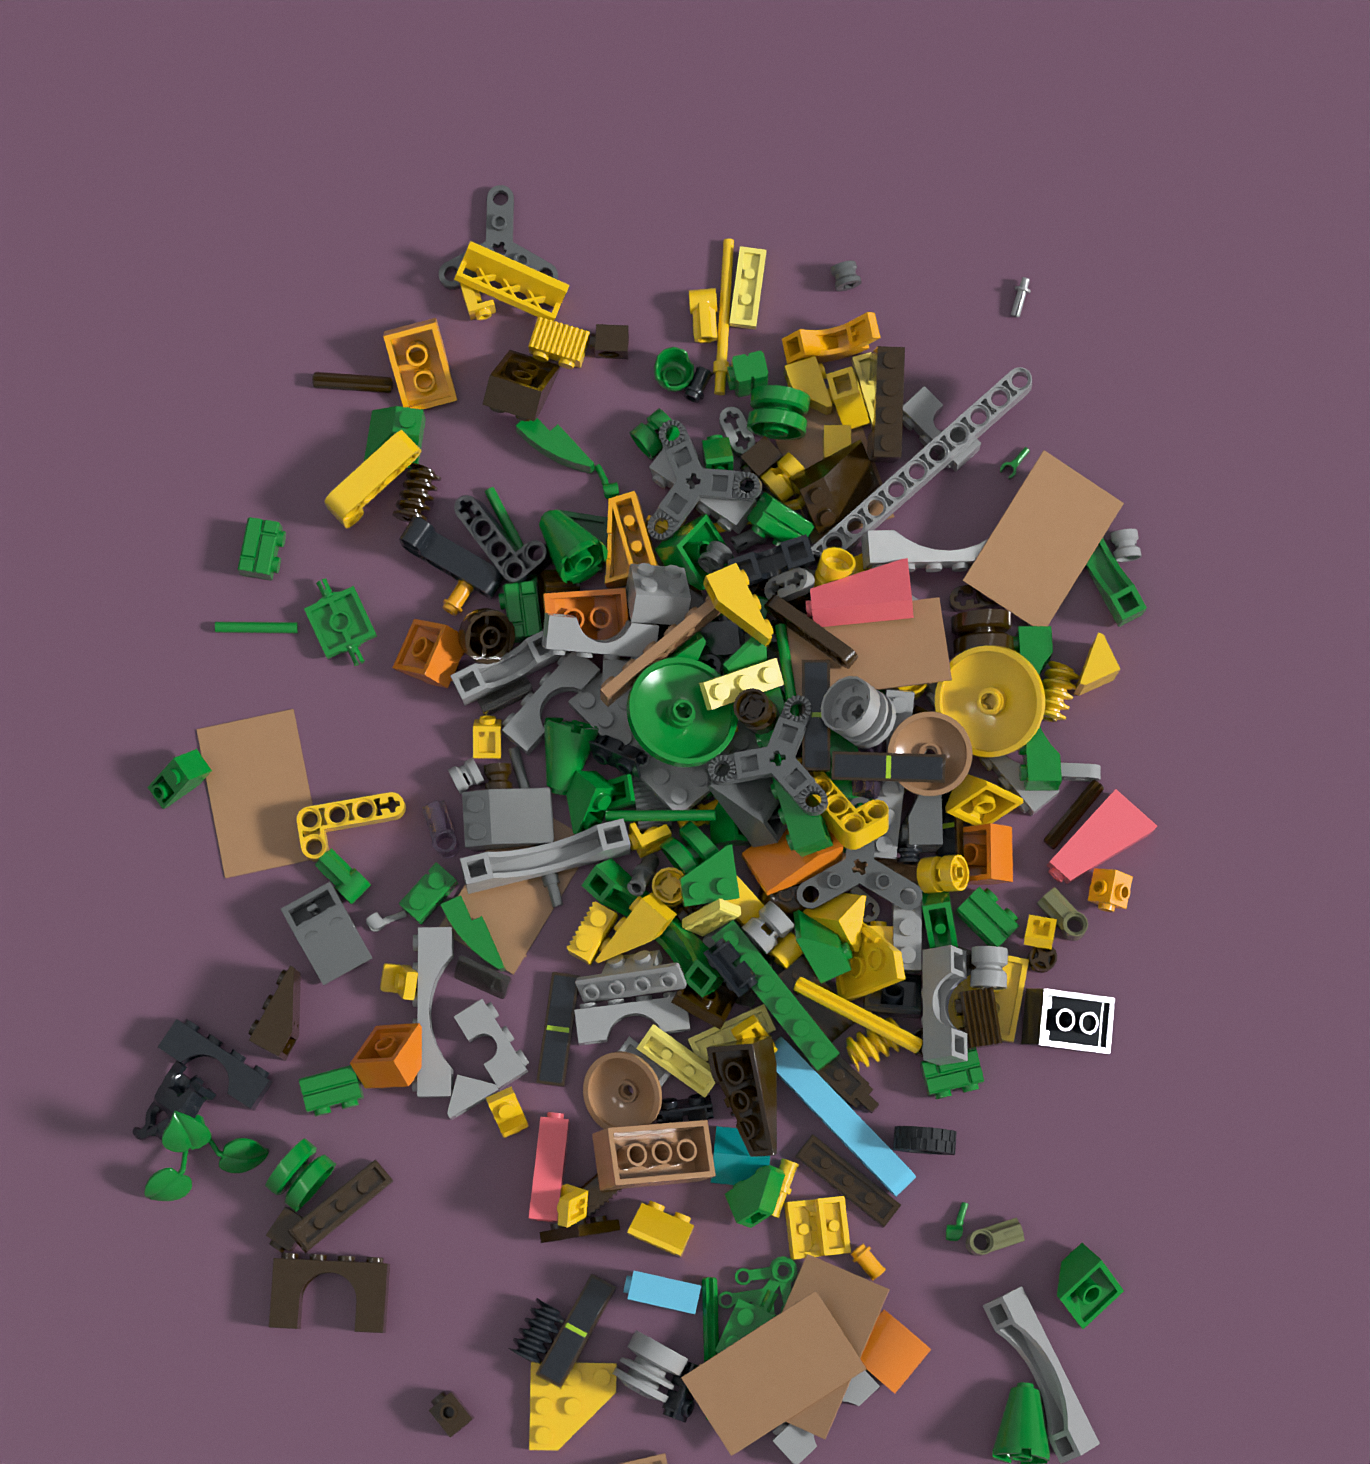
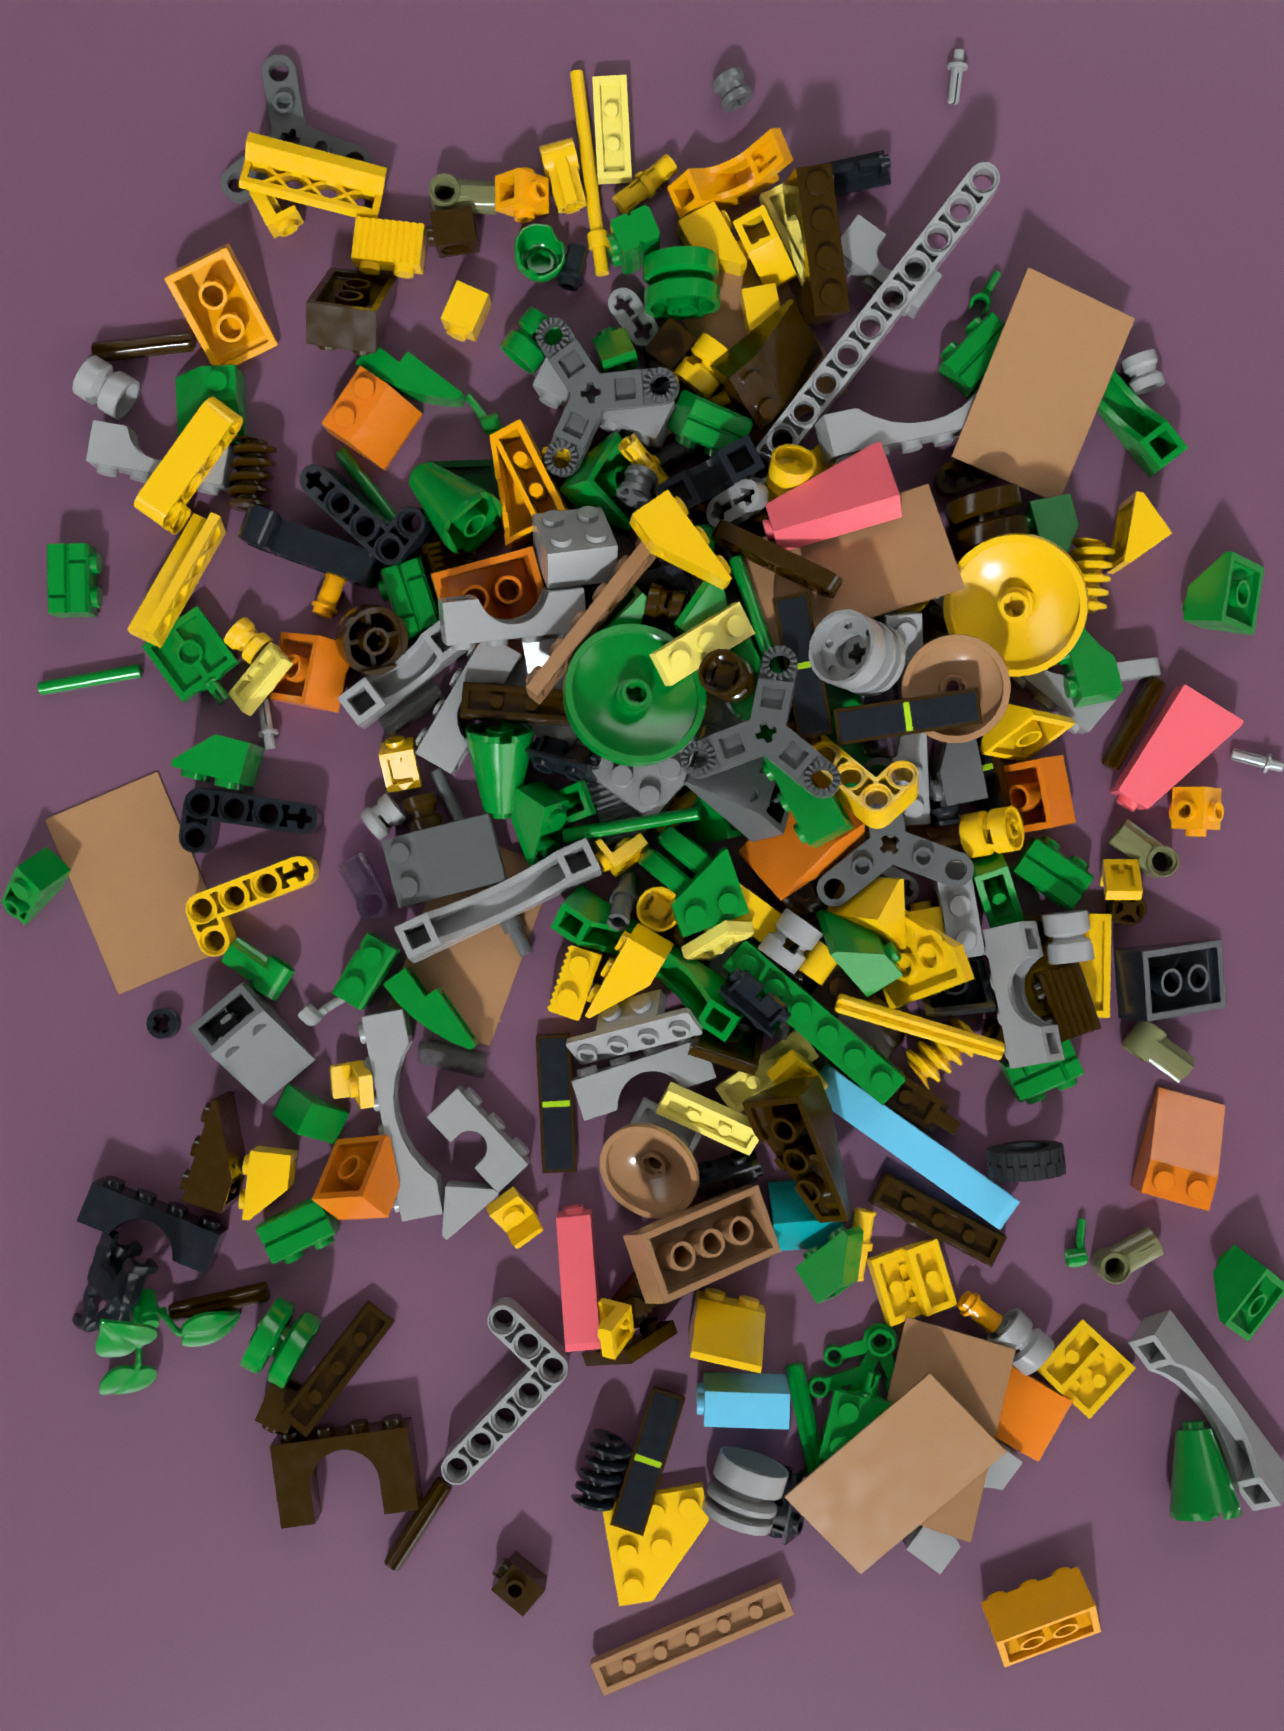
camera: 10 degrees left, 10 degrees up
(265, 907) = (174, 1024): none -> black bush
(265, 1138) = (220, 1301): none -> dark brown axle
(315, 457) = (117, 450): none -> light grey arch
(316, 1045) = (269, 1175): none -> yellow slope
(321, 410) = (110, 390): none -> light grey wheel
(343, 562) = (177, 579): none -> yellow fence
(349, 706) = (224, 758): none -> green slope
(359, 1001) = (310, 1115): none -> green slope
(361, 757) = (253, 816): none -> black beam
(378, 1351) = (418, 1524): none -> dark brown axle
(387, 619) = (247, 639): none -> yellow wheel
(387, 692) = (267, 731): none -> light grey piece
(391, 651) = (260, 678): none -> light yellow plate
(476, 1258) = (512, 1397): none -> light grey beam
(519, 469) = (372, 418): none -> orange slope
(586, 706) = (511, 704): none -> dark brown tile
(608, 403) = (465, 312): none -> yellow brick
(635, 317) = (472, 193): none -> olive piece
(669, 323) = (522, 194): none -> light orange brick
(718, 648) = (657, 603): none -> dark brown wheel
(719, 533) = (637, 454): none -> yellow pin
(765, 333) = (645, 184): none -> yellow pin
(901, 1292) = (1031, 1345): none -> light grey wheel
(930, 355) = (861, 172): none -> black hinge
(946, 1325) = (1086, 1368): none -> yellow slope
(989, 510) = (967, 362): none -> green brick
(1043, 1071) = (1151, 1045): none -> olive piece
(1053, 1158) = (1180, 1149): none -> orange slope
(1162, 727) = (1226, 595): none -> green slope
(1166, 861) = (1264, 762): none -> light grey piece

